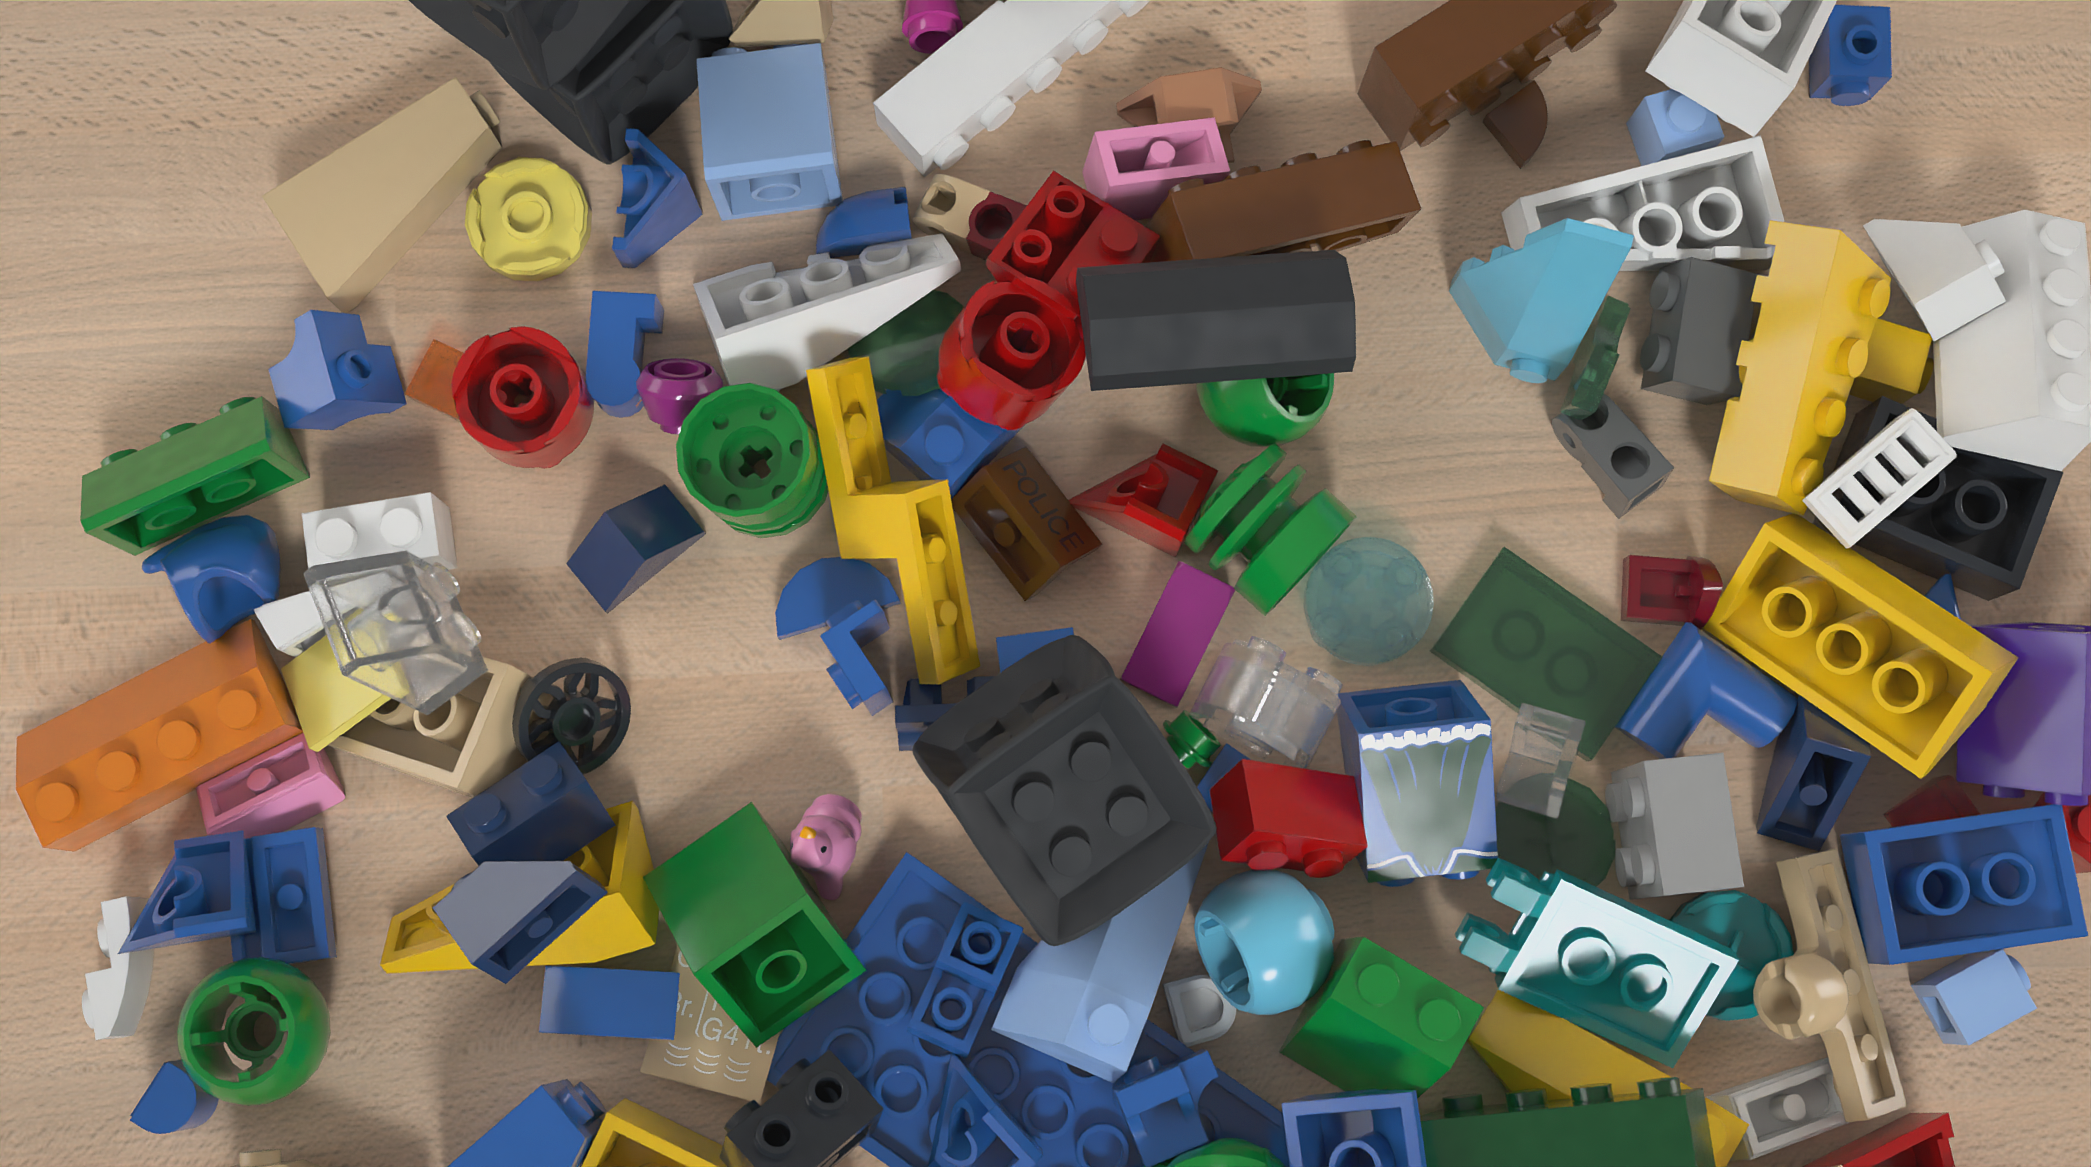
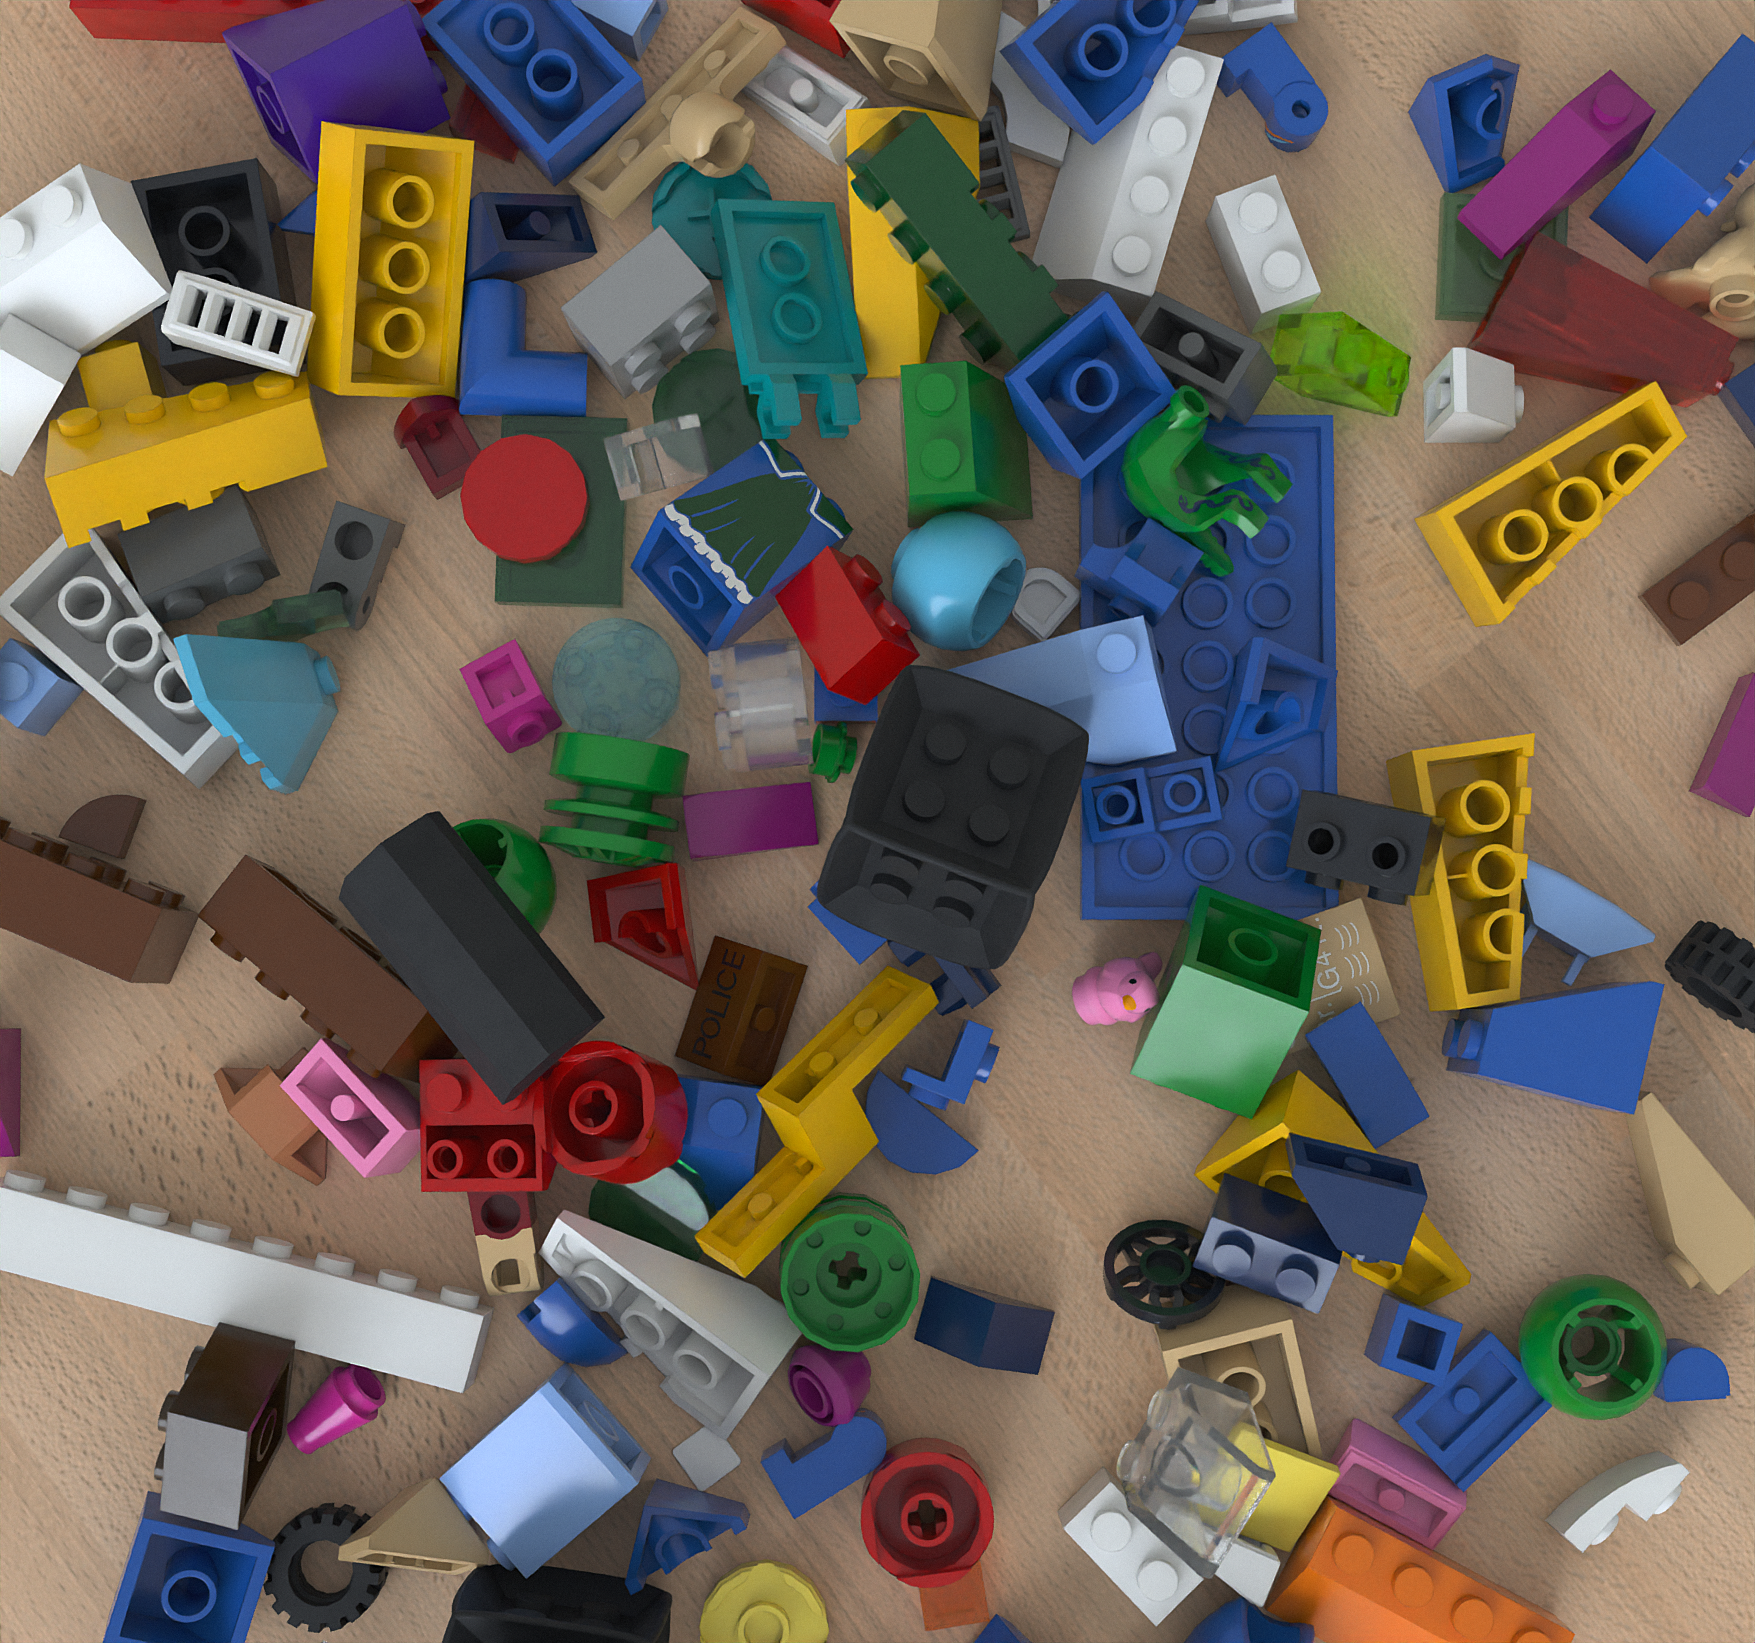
camera: 120 degrees left, 5 degrees up
(198, 896) = (1522, 1474): blue slope -> none
(369, 884) = (1413, 1340): none -> blue brick
(690, 262) = (706, 1458): none -> white sticker
(1413, 506) = (510, 697): none -> dark pink bracket
(1576, 626) = (524, 498): none -> red tile

